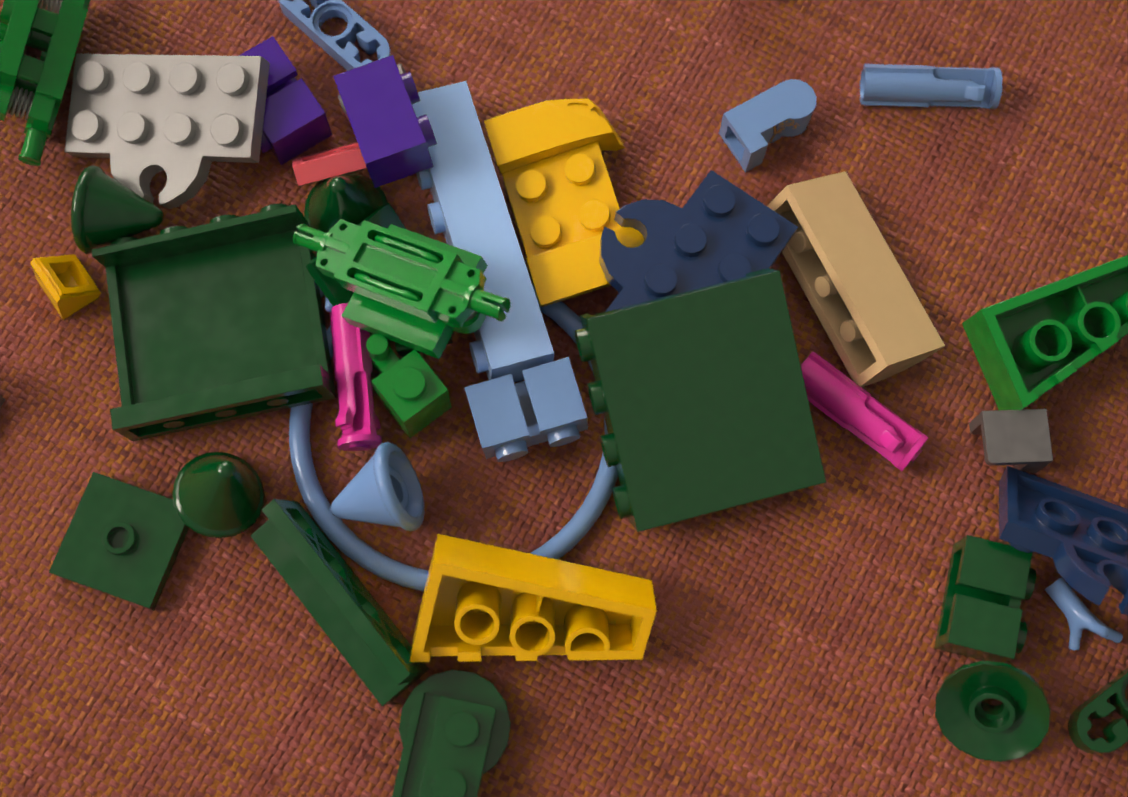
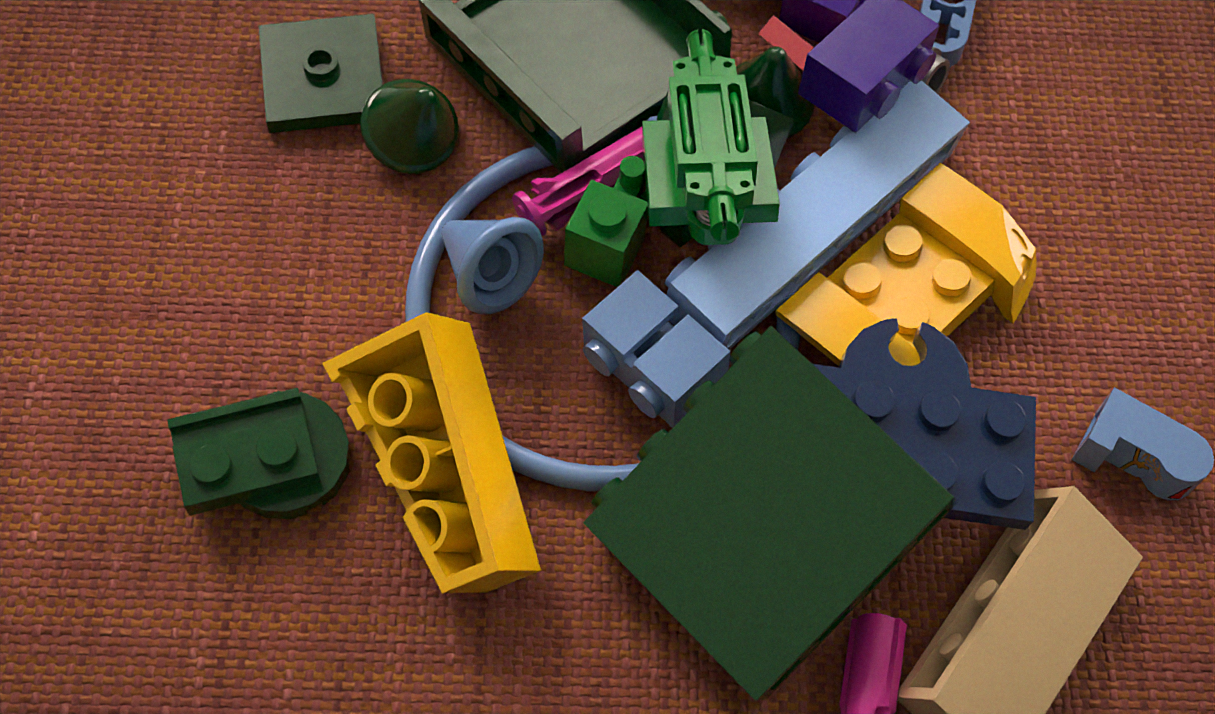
camera: 60 degrees right, 10 degrees down
(337, 600) = (360, 276): dark green fence -> none

